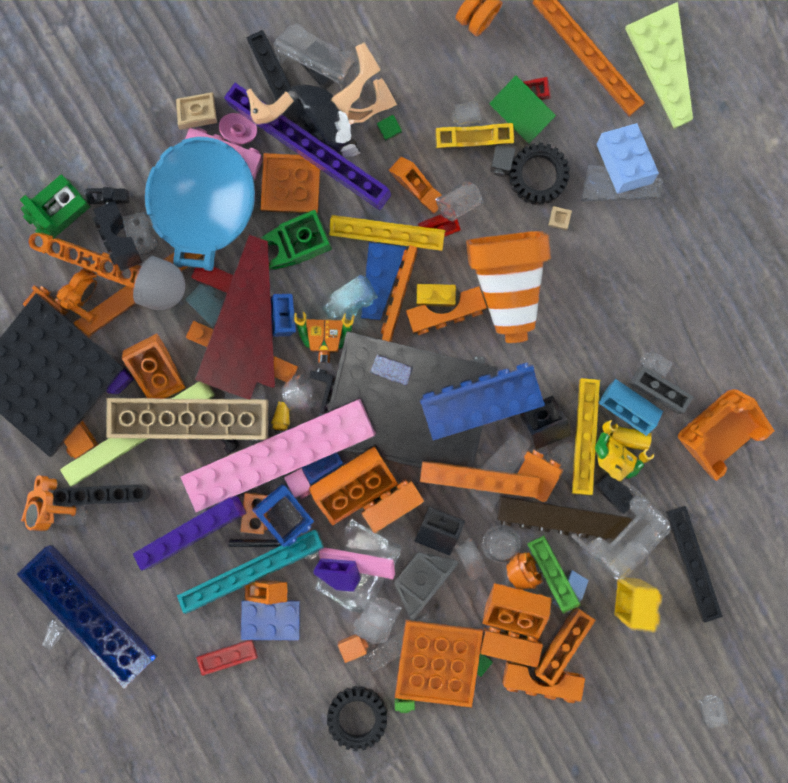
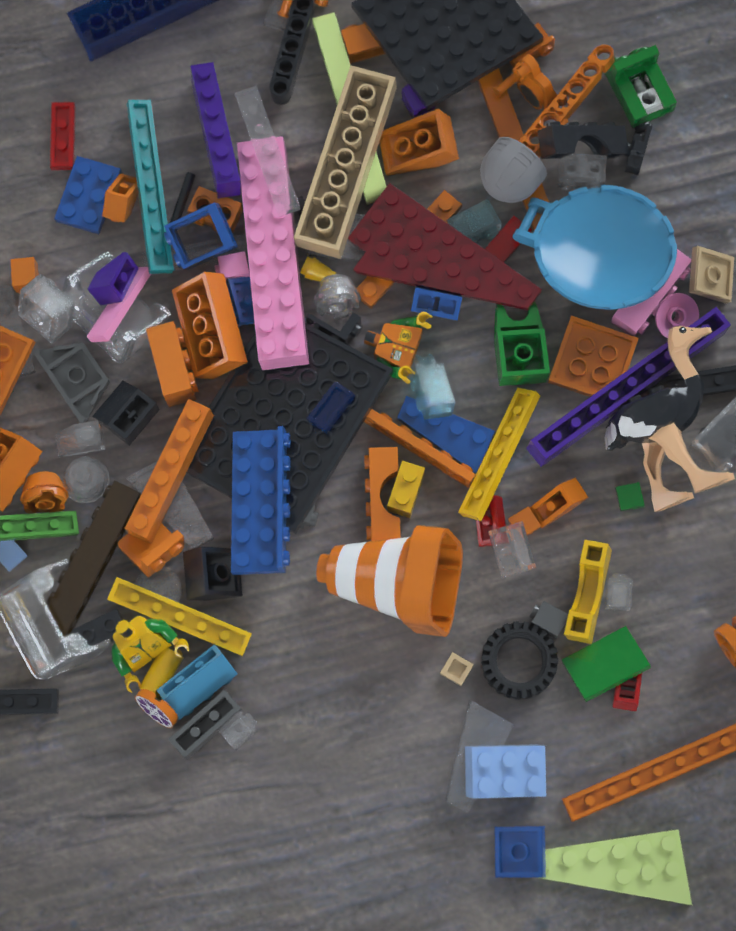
camera: 110 degrees right, 10 degrees down
(197, 484) = (267, 151): none -> clear tile
(662, 425) = (157, 710): none -> tile
(679, 133) = (520, 852): none -> blue tile
(723, 430) = (130, 787): orange windscreen -> none

